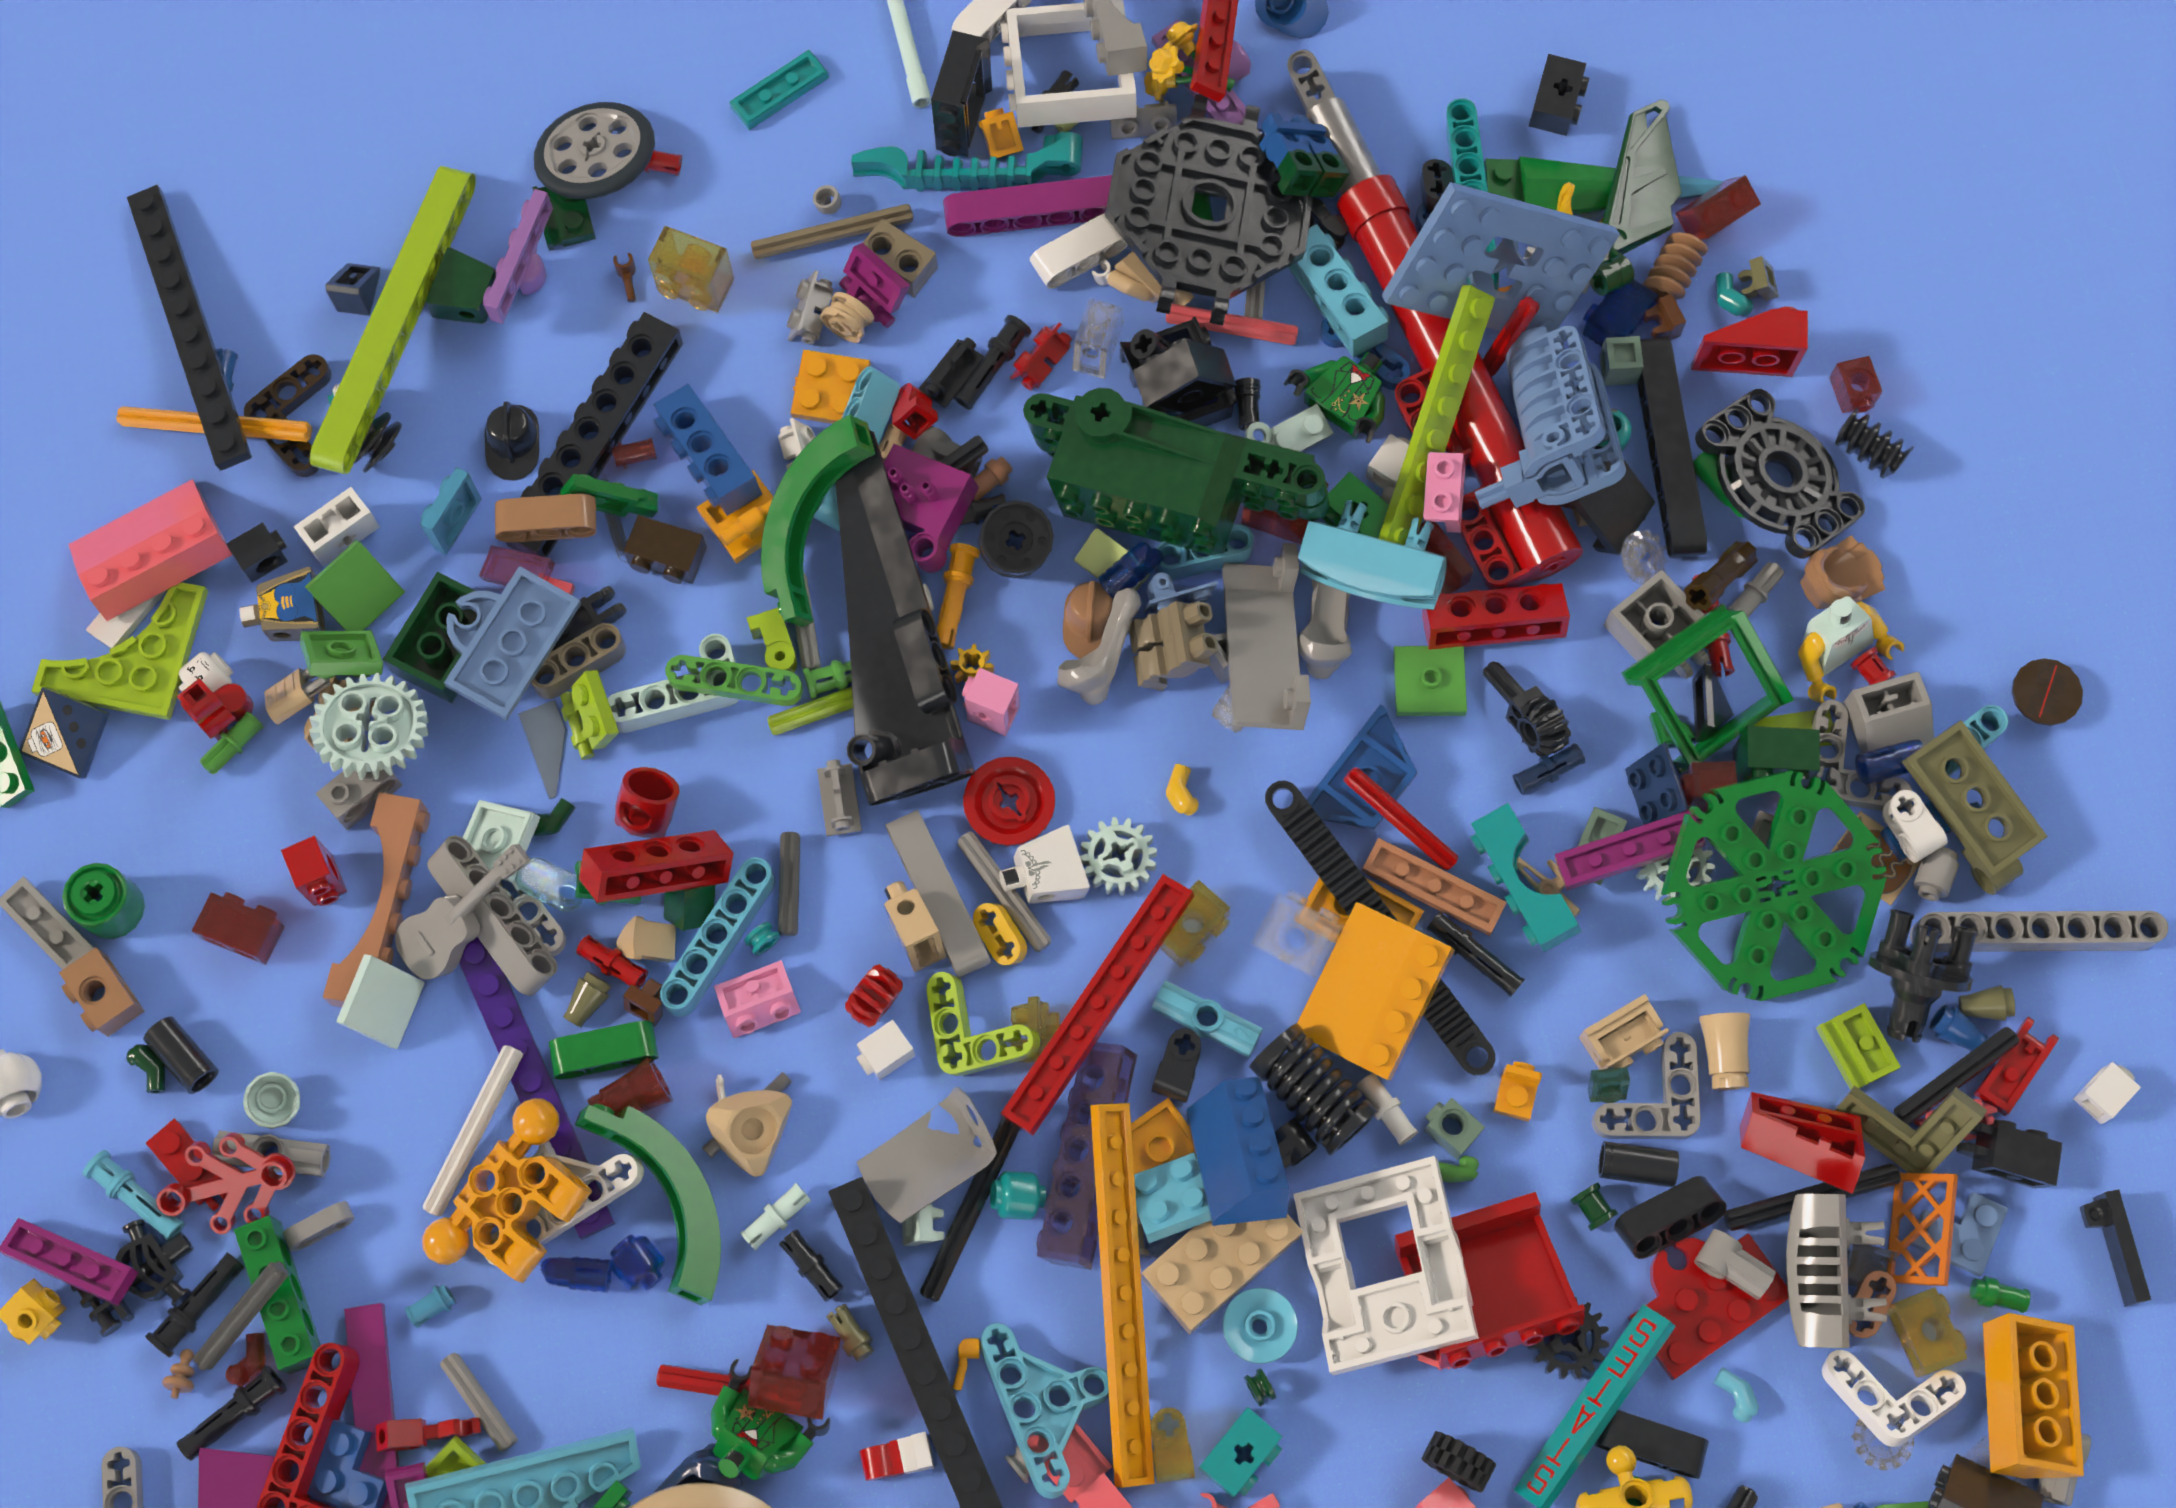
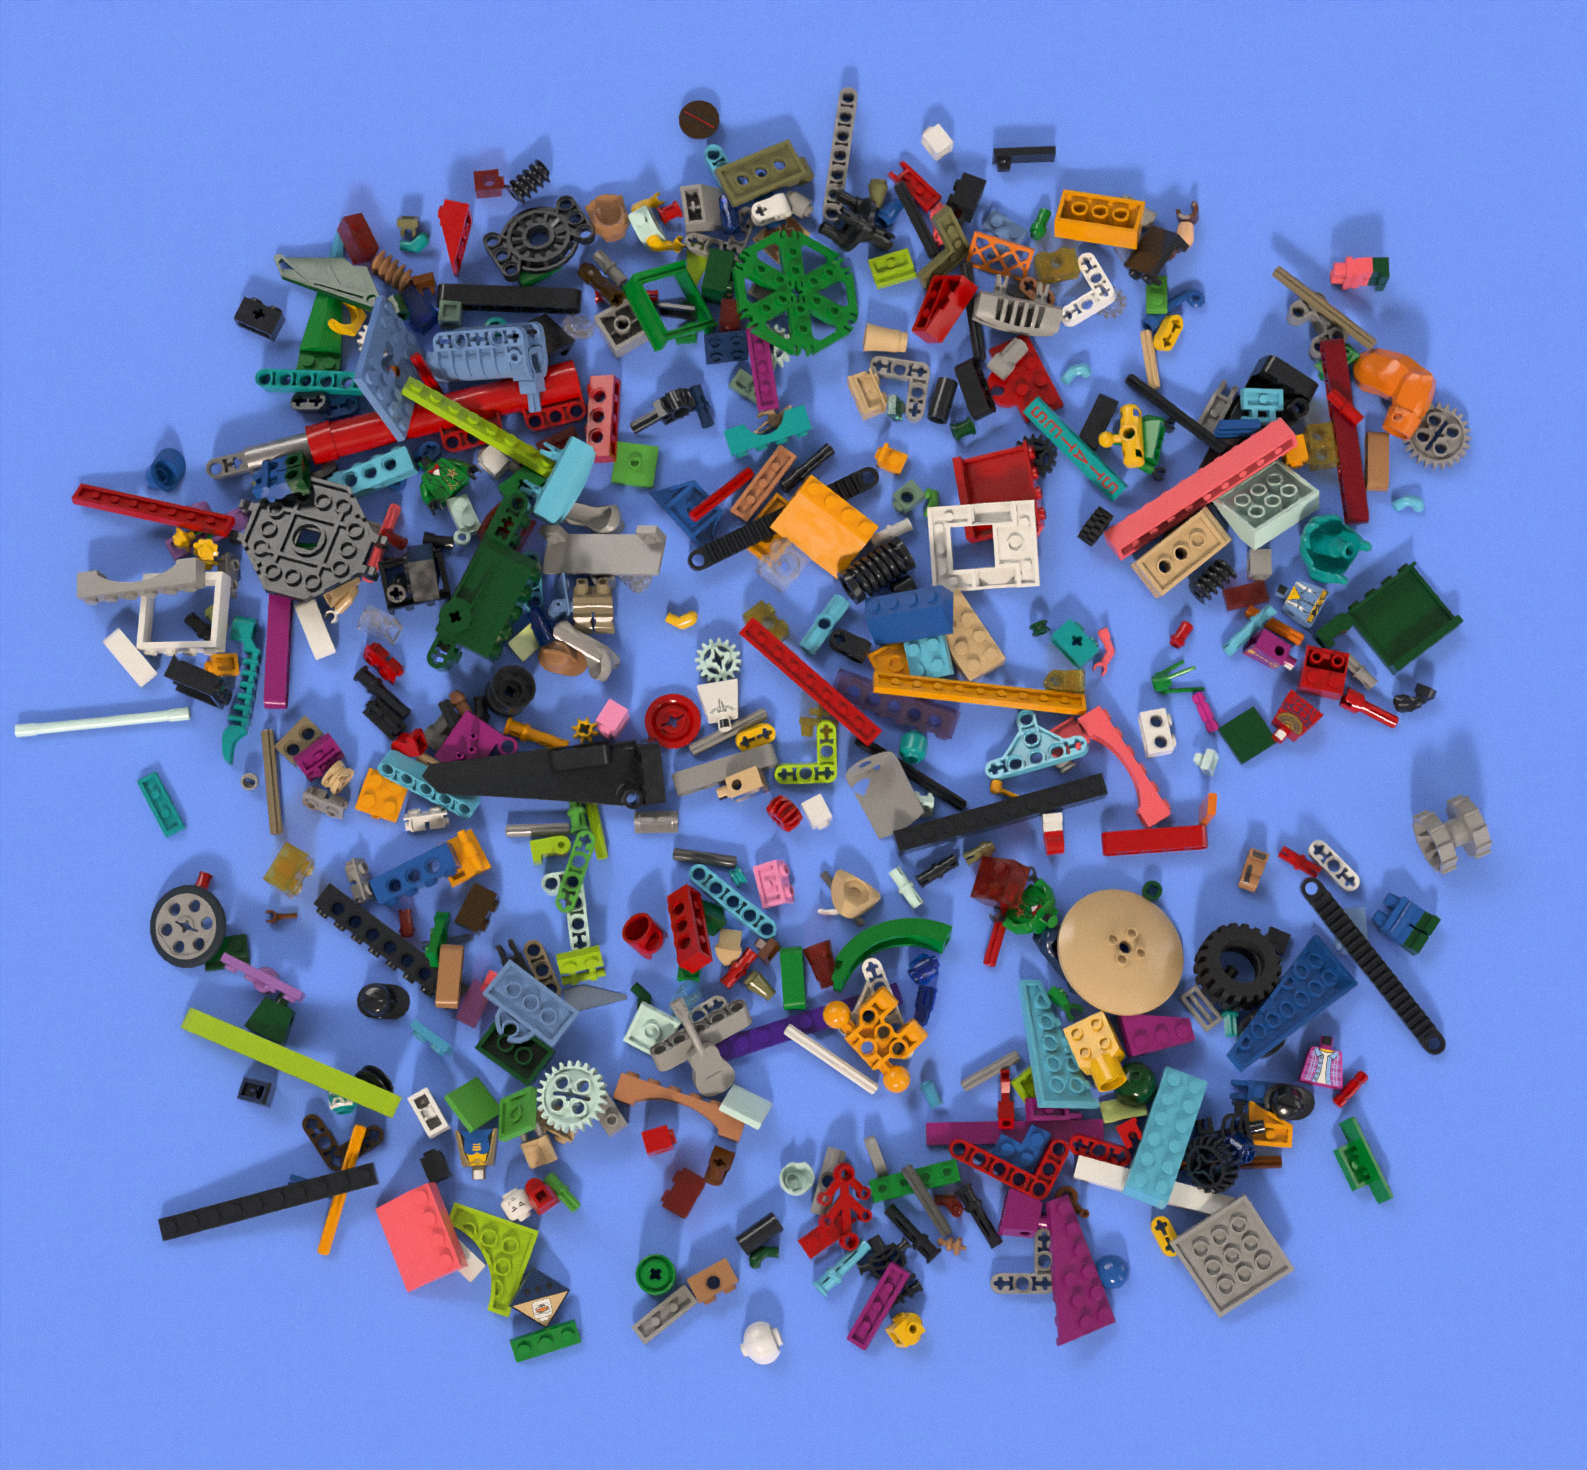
camera: 85 degrees left, 5 degrees up
(283, 973) = (719, 1165): none -> reddish brown piece
(701, 376) = (357, 871): none -> light grey hinge
(794, 506) = (469, 822): green arch -> none
(1238, 336) = (395, 539): none -> clear red pin
(1265, 1306) = (1005, 612): medium azure dish -> none
(1445, 489) = (524, 430): bright pink bracket -> none

